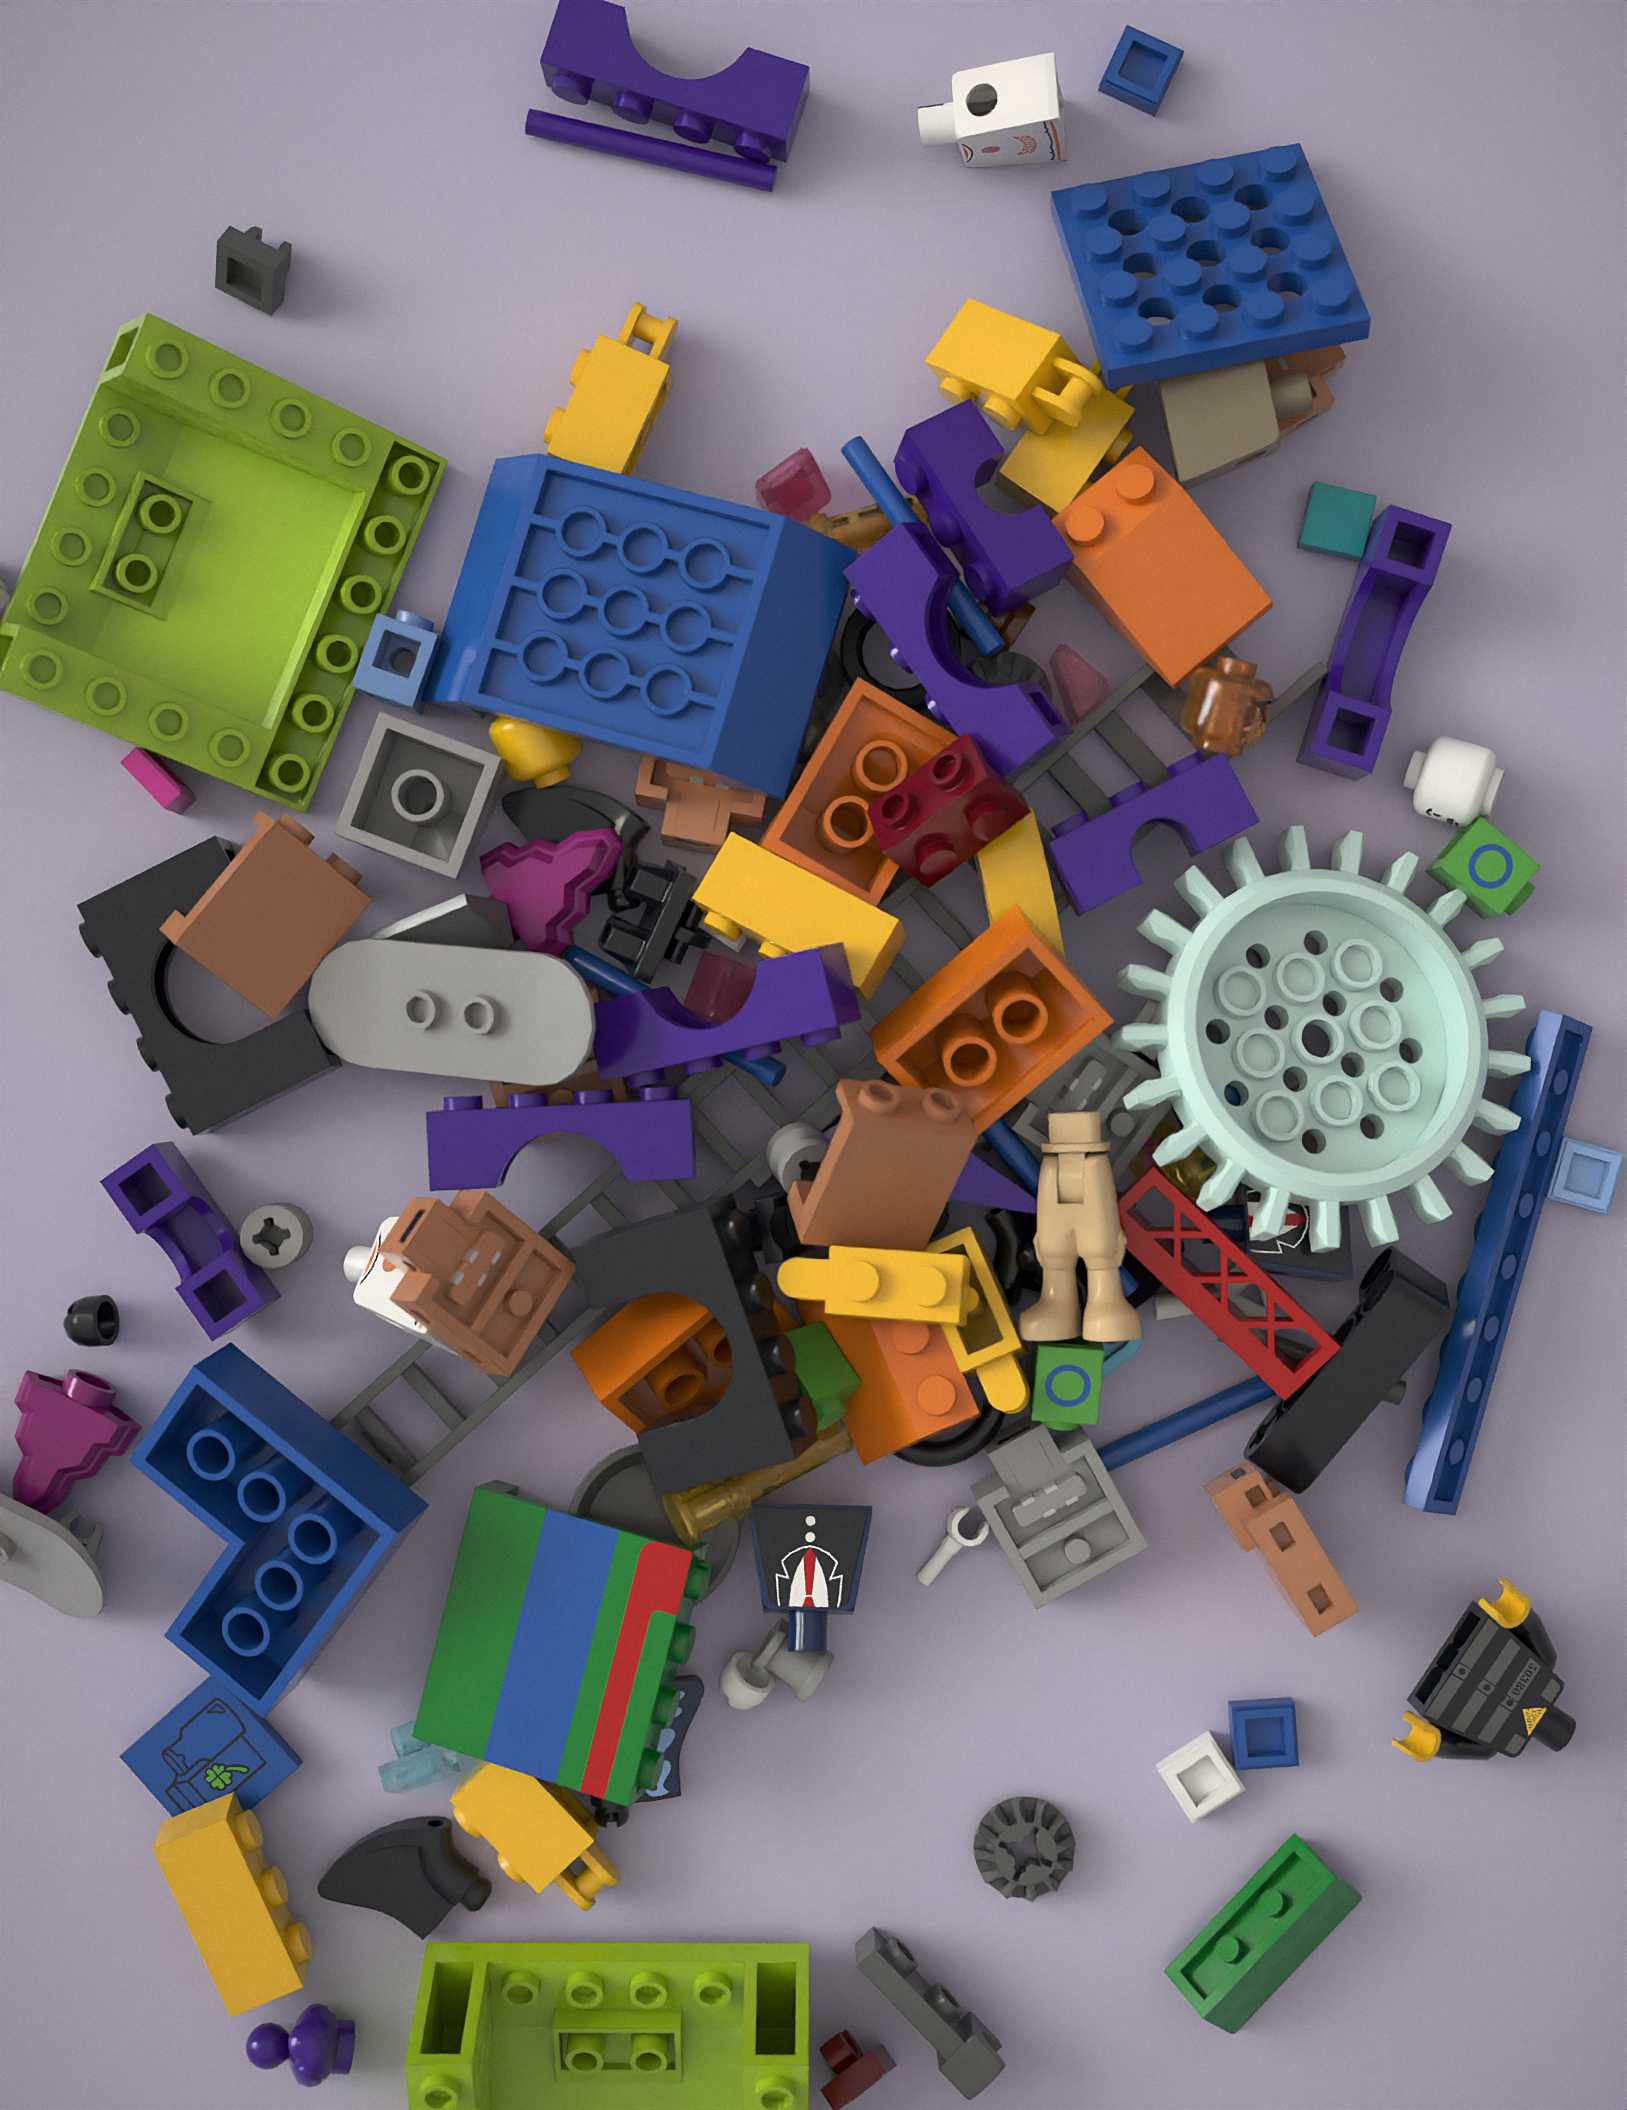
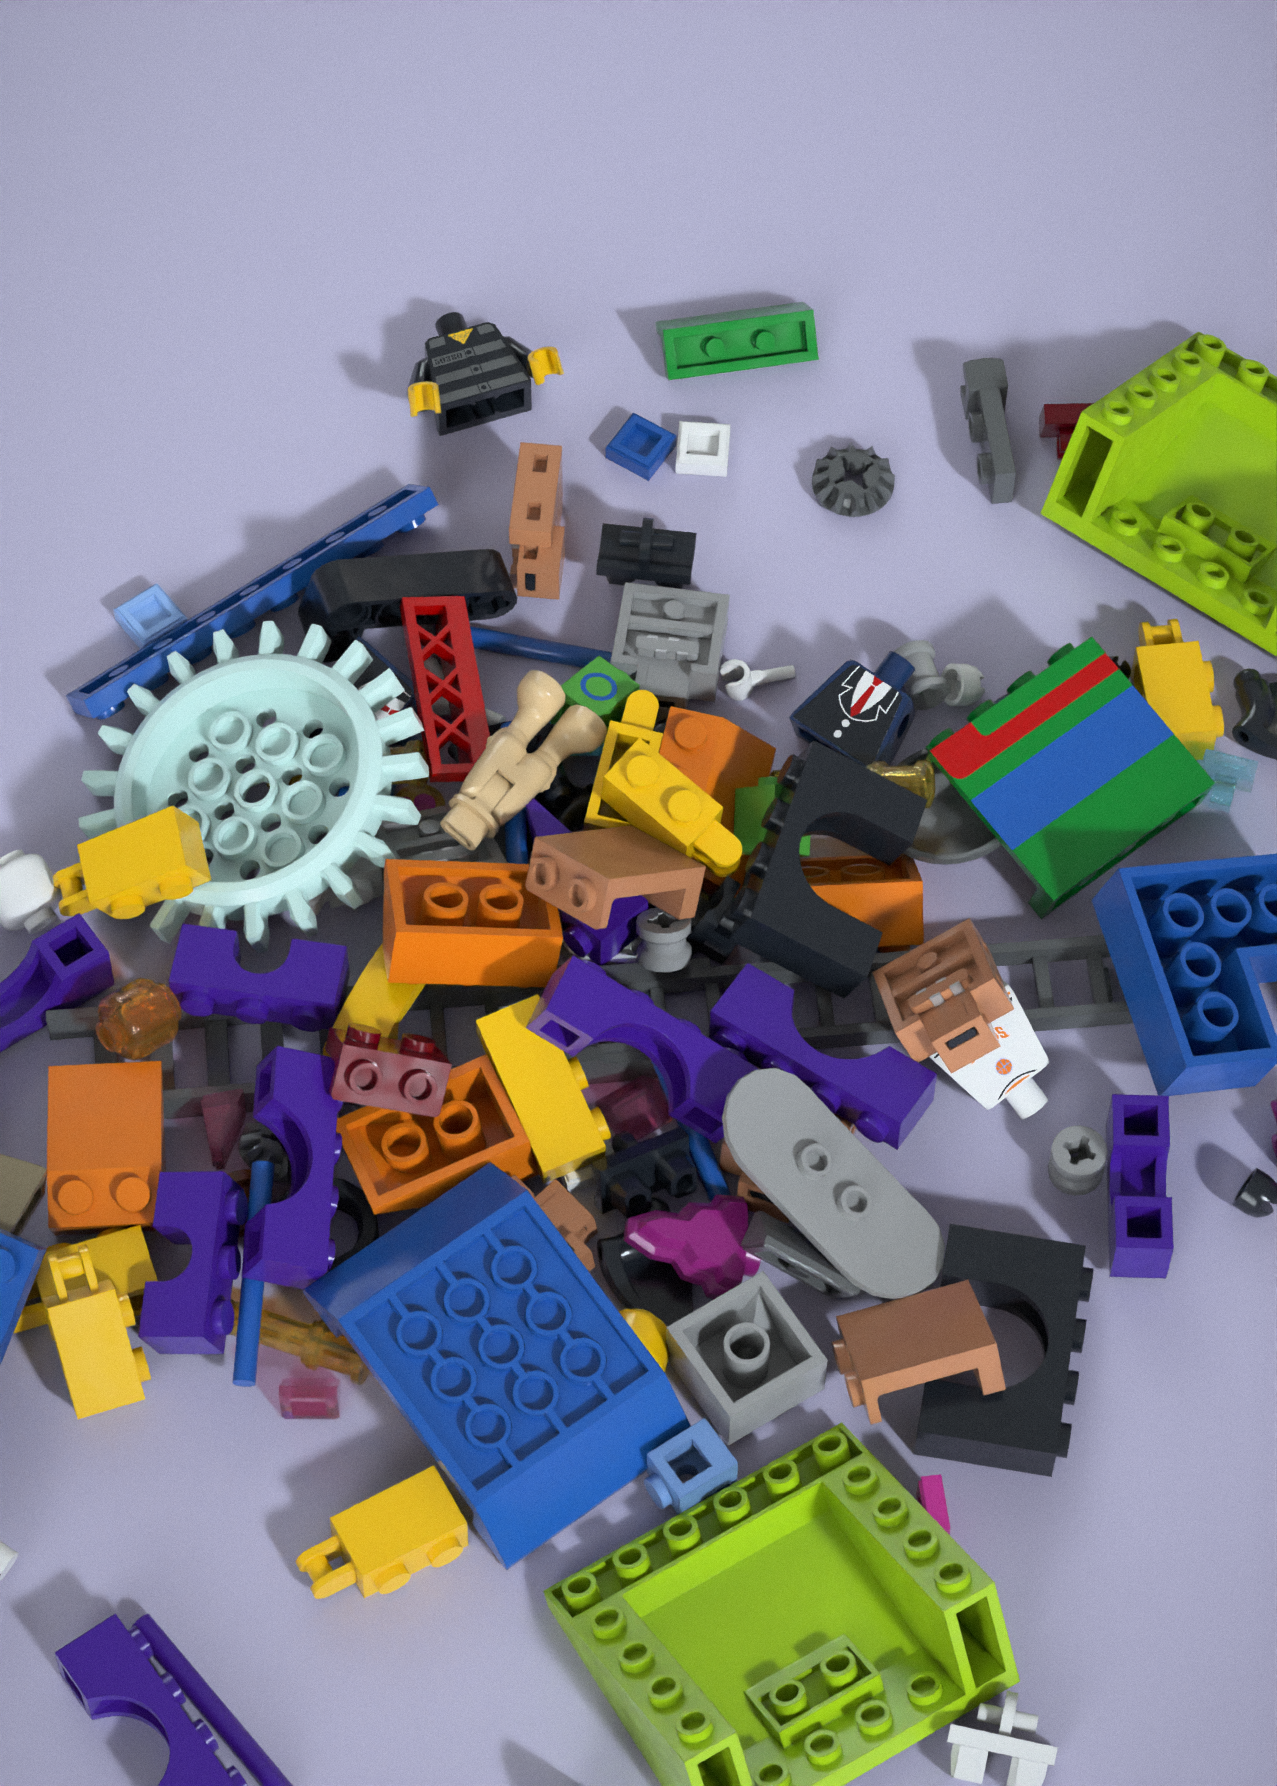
camera: 140 degrees left, 30 degrees down
(1154, 1598) = (646, 554): none -> black hips
(1355, 860) = (135, 866): none -> yellow brick
(1485, 869) = (52, 825): bright green brick -> none

